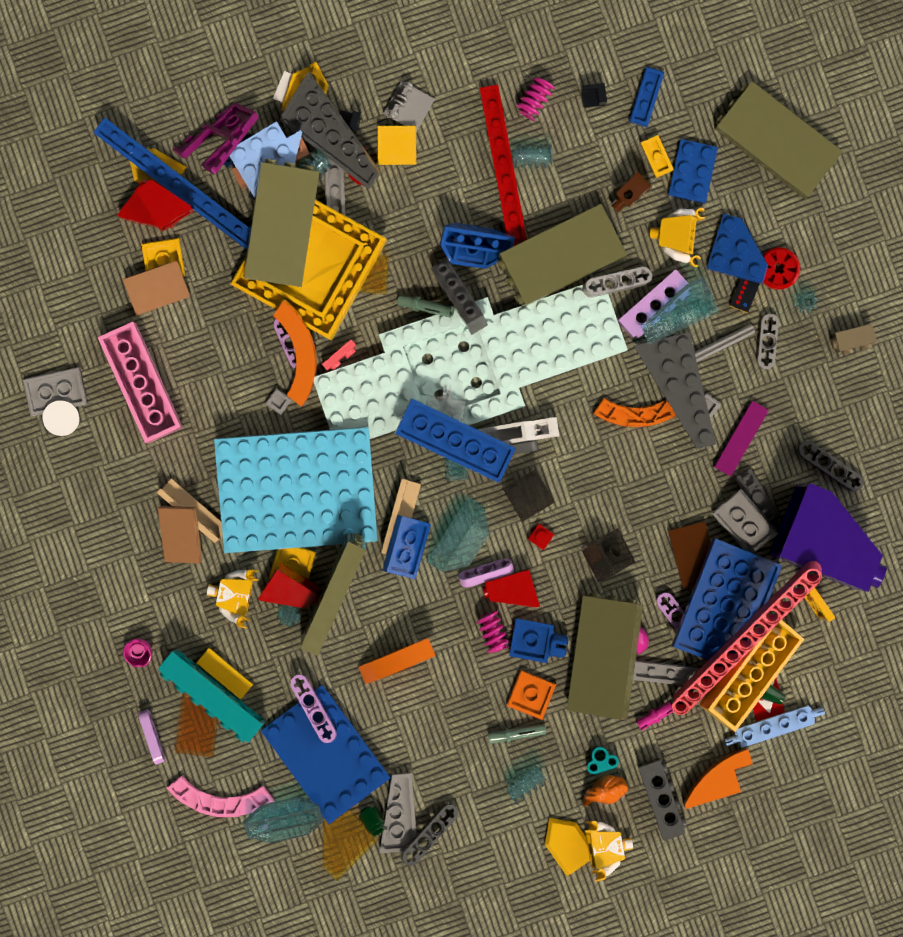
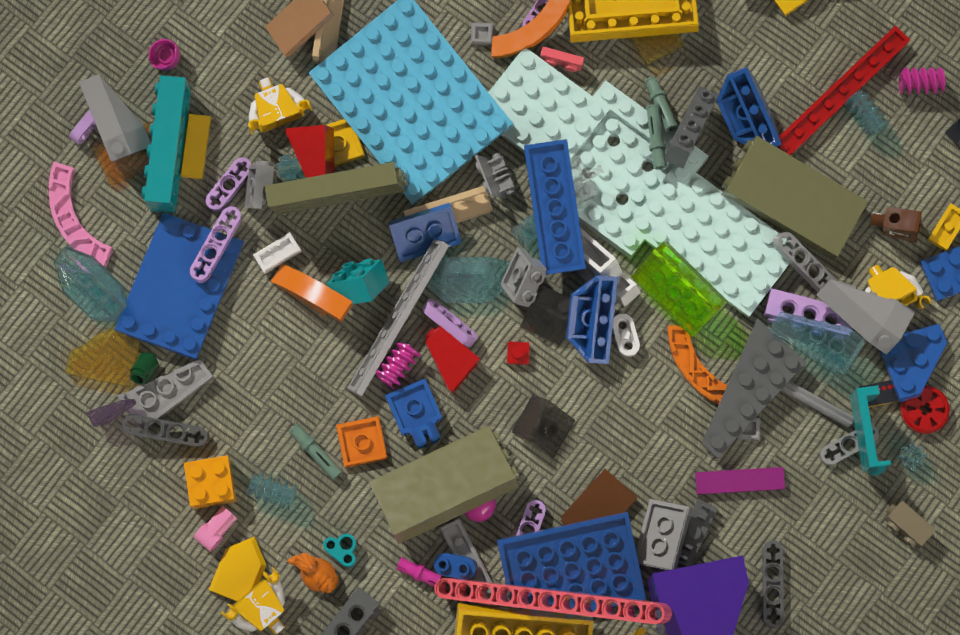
camera: 55 degrees right, 10 degrees down
(171, 724) = (115, 122): none -> light grey wedge
(281, 679) = (214, 193): none -> lavender beam
(286, 644) = (258, 176): none -> light grey plate
(348, 665) = (277, 253): none -> white plate
(387, 872) = (104, 415): none -> clear purple slope
(389, 468) = (491, 170): none -> light grey hinge
(412, 620) = (360, 281): none -> teal slope
(455, 330) = (657, 144): none -> sand green pin
(457, 608) = (398, 317): none -> light grey tile
(489, 825) = (210, 482): none -> light orange brick
(492, 498) = (523, 277): none -> light grey plate
(527, 847) = (211, 533): none -> bright pink piece
(555, 467) = (592, 318): none -> blue wedge
(575, 388) = (679, 289): none -> clear neon green brick
(580, 449) = (625, 335): none -> white plate
(667, 687) = (454, 566): none -> blue plate
(692, 262) = (872, 316): none -> light grey wedge
(769, 326) = (859, 403): none -> teal panel

